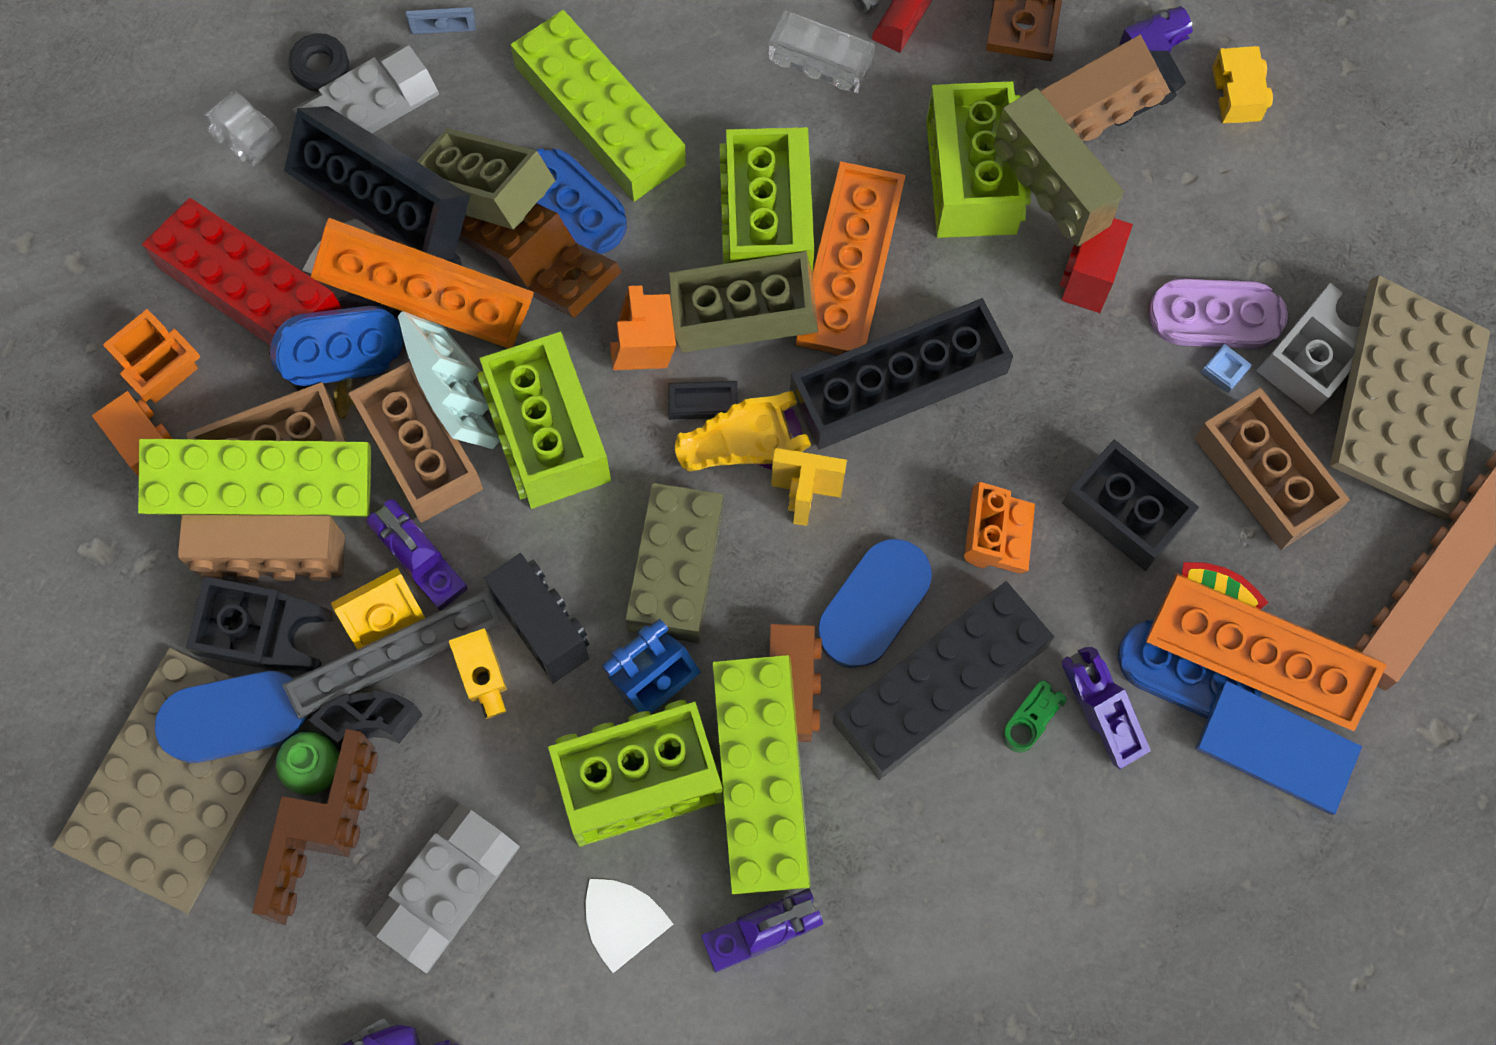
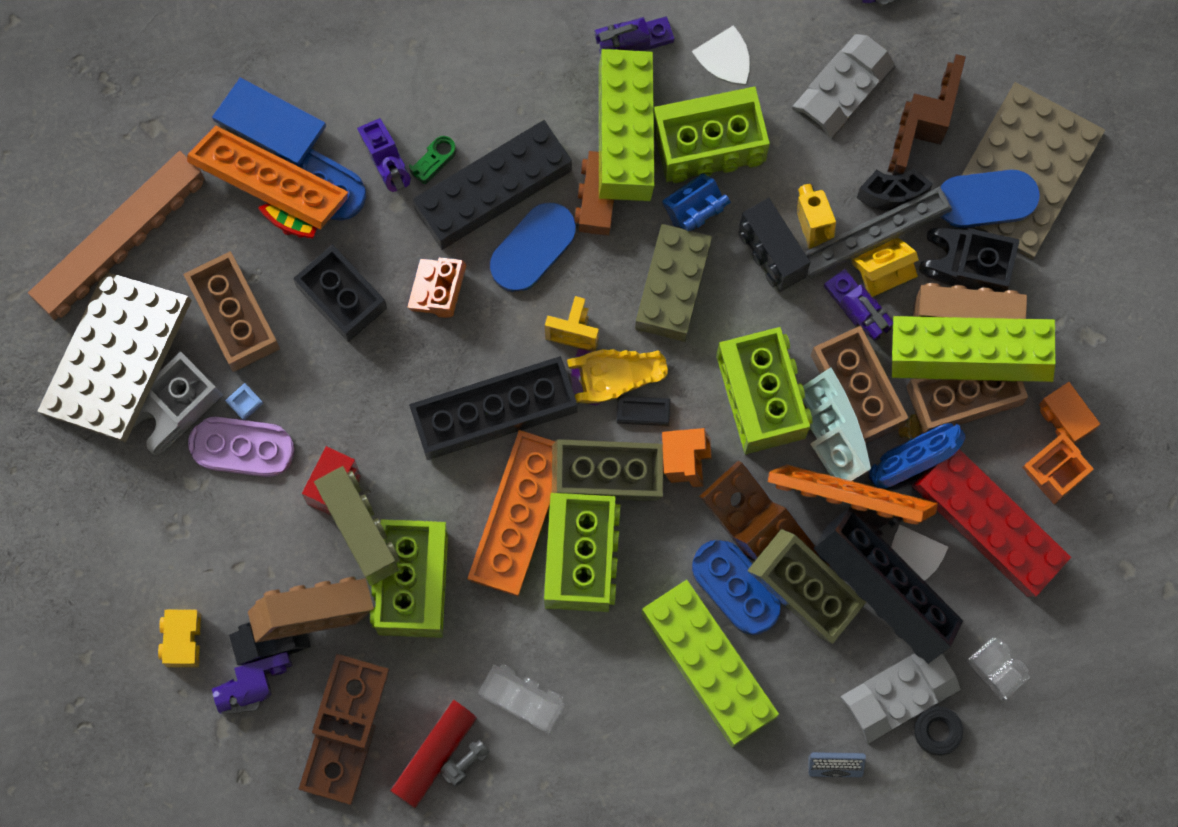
camera: 175 degrees left, 5 degrees up
(307, 763) = (935, 162): bright green piece -> none

